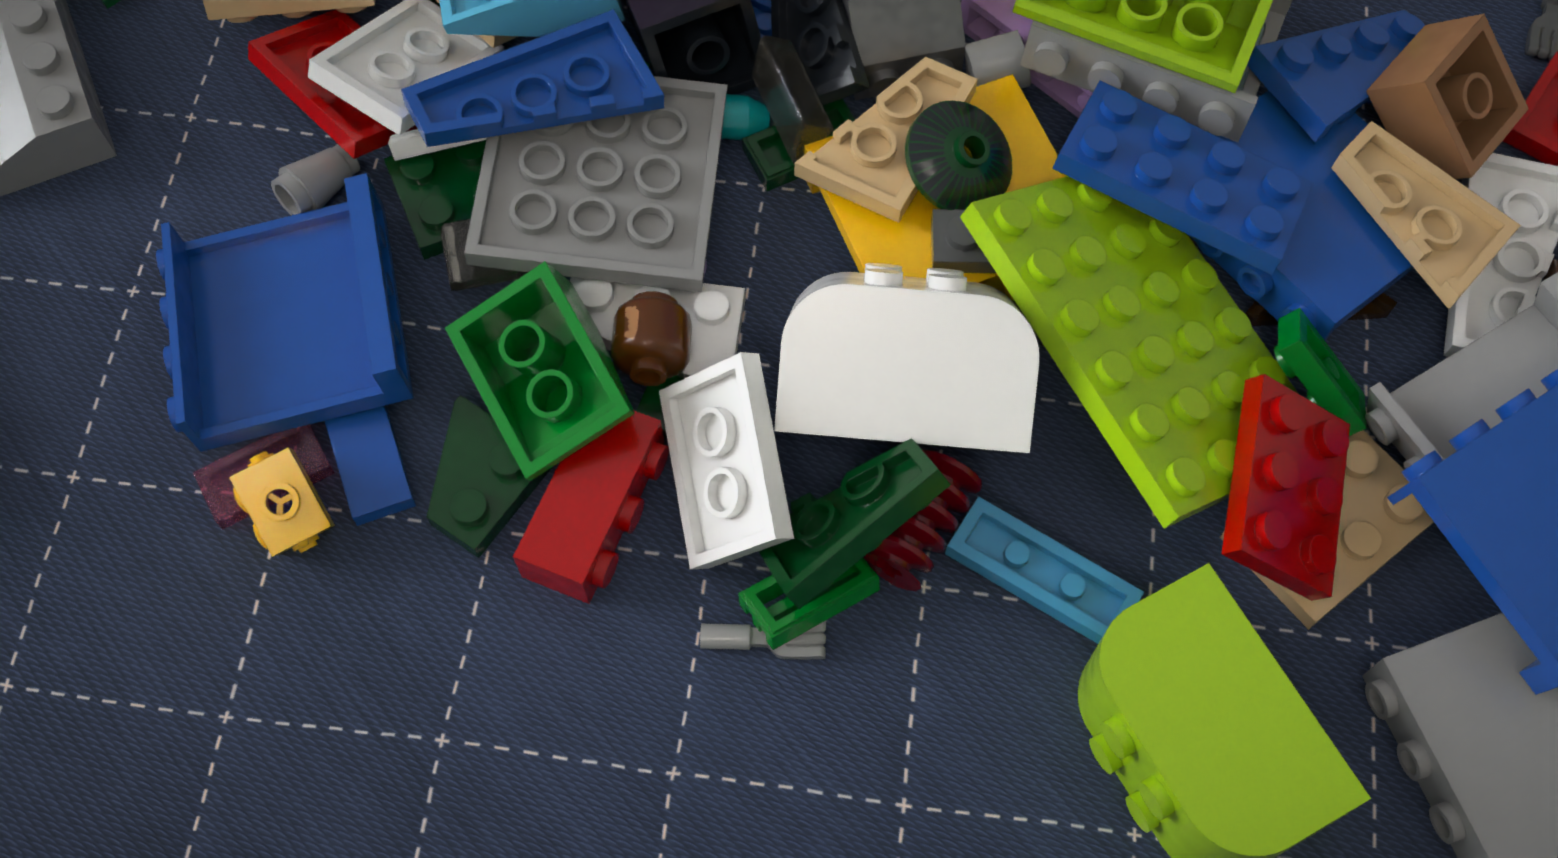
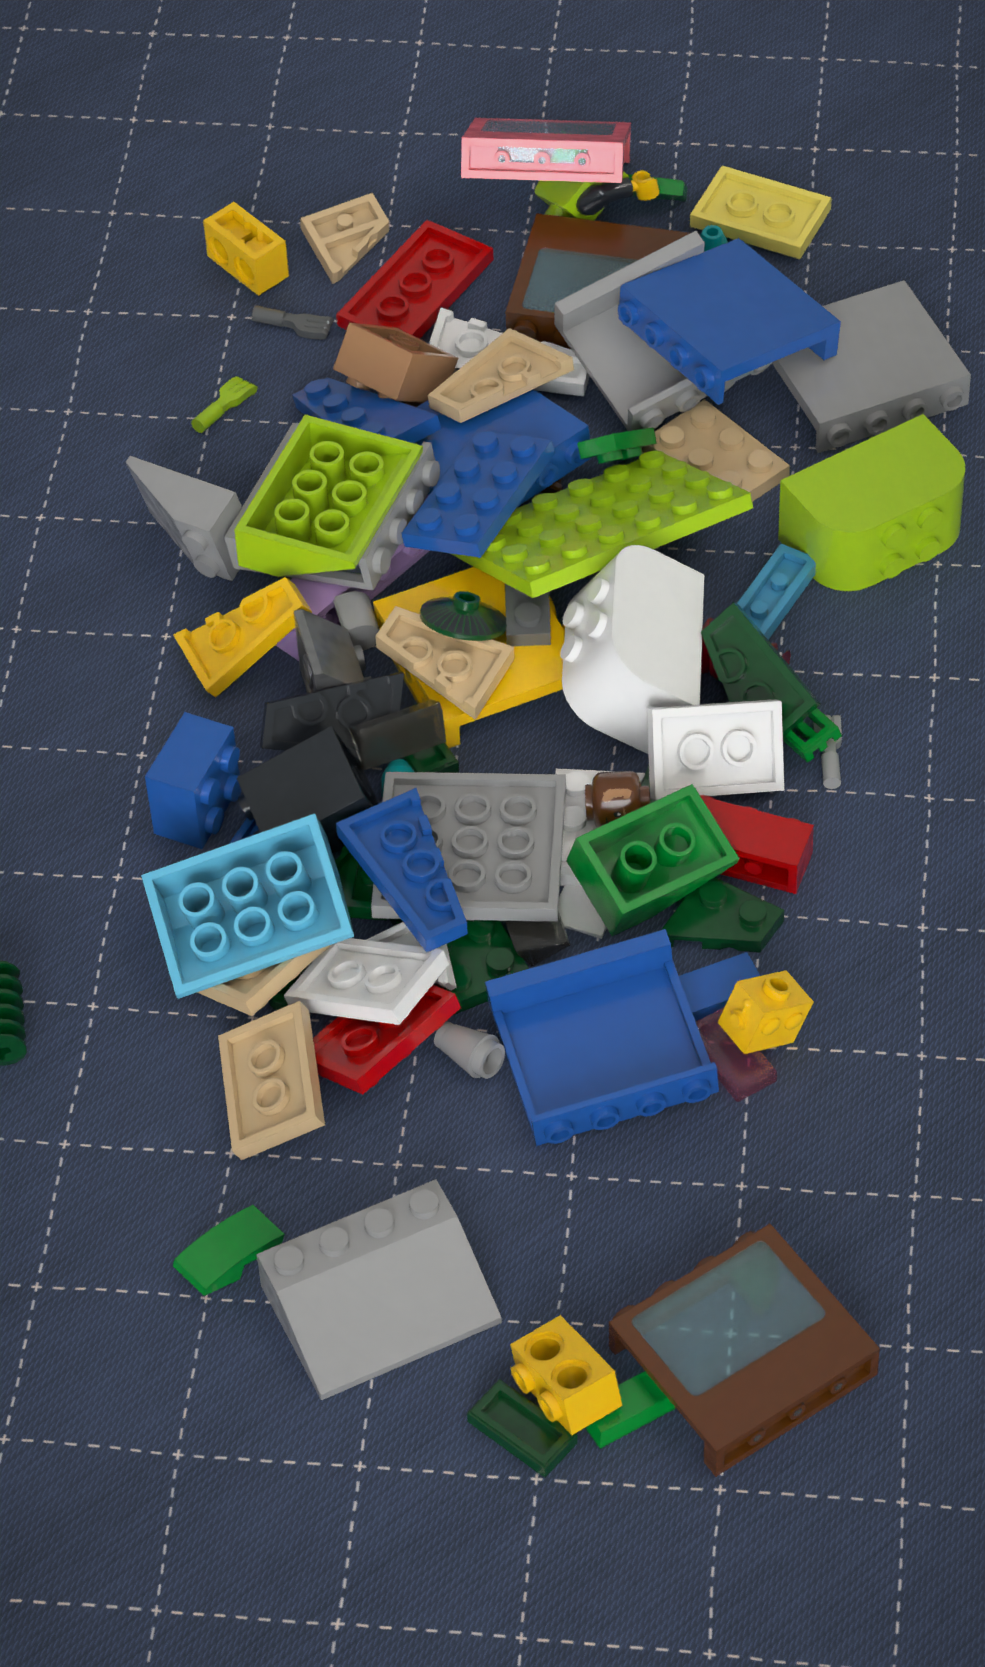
camera: 90 degrees left, 15 degrees down
(1286, 488) = (711, 454): red plate -> none

